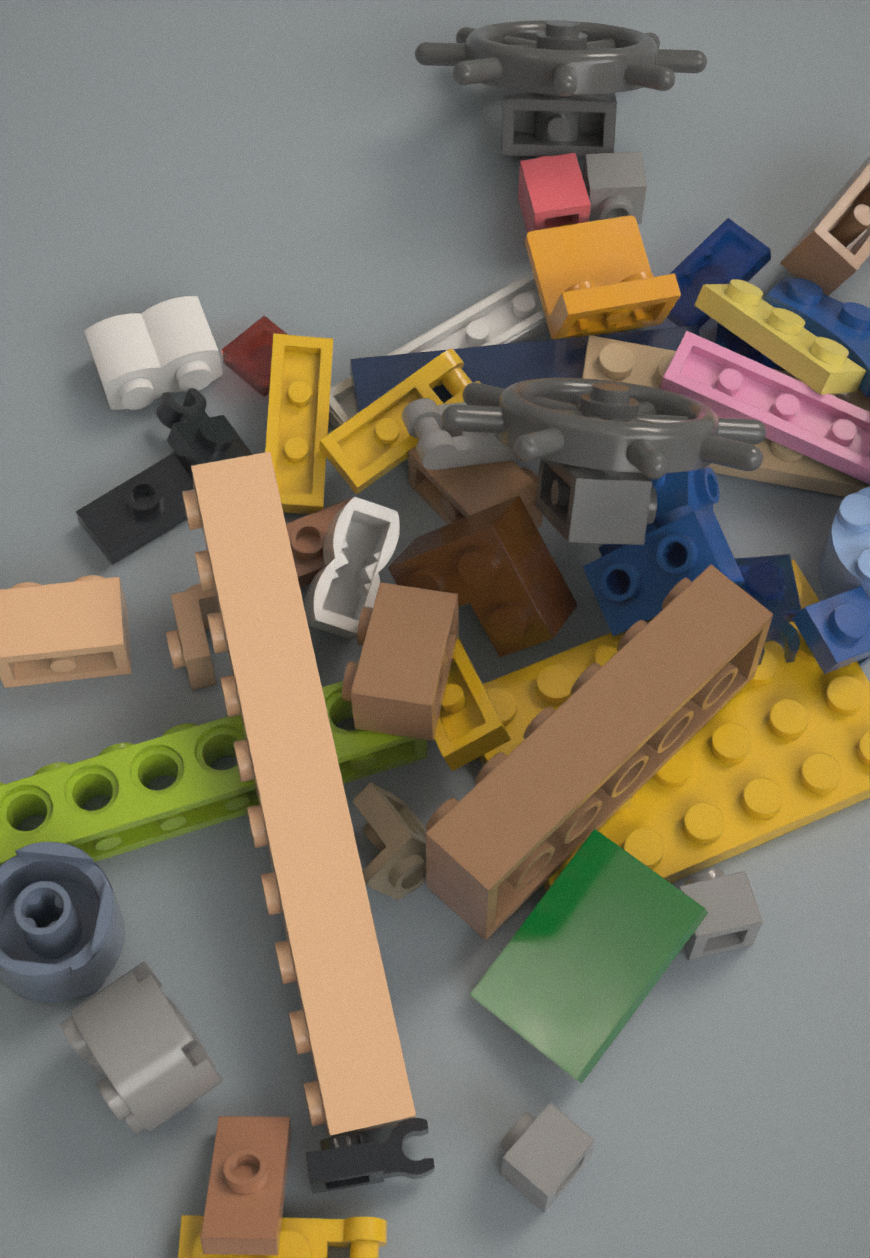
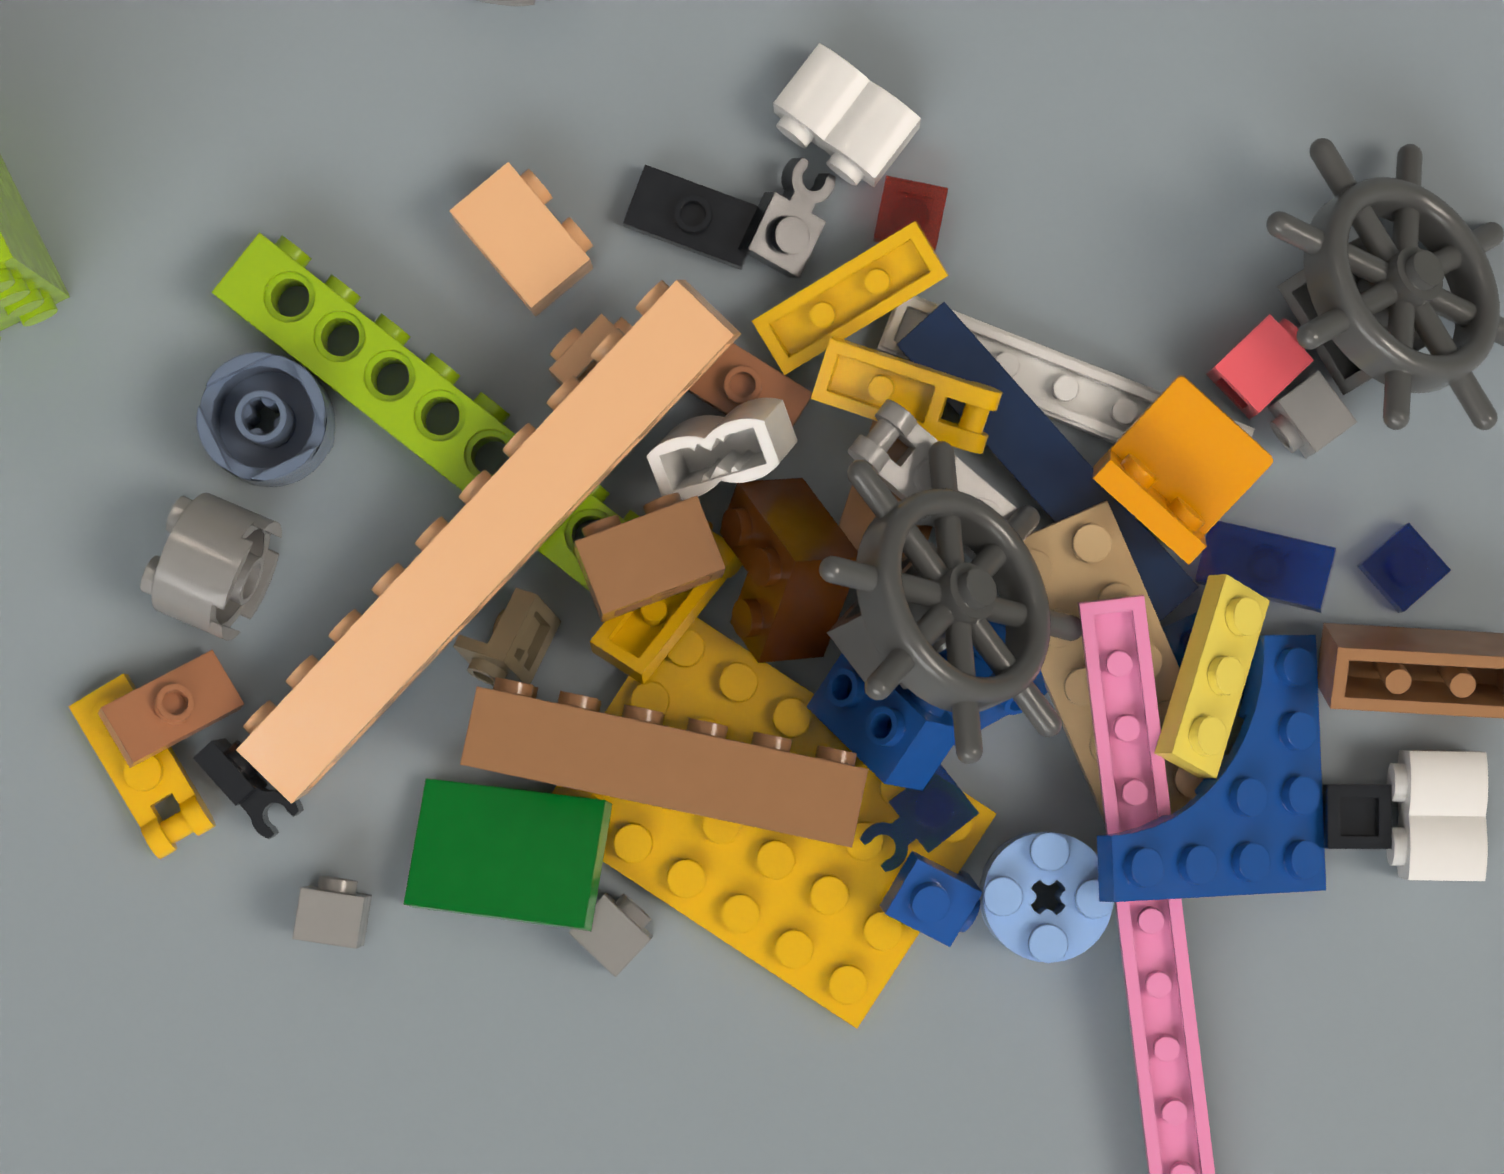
camera: 60 degrees right, 25 degrees up
(768, 202) = (1404, 568): none -> clear blue plate

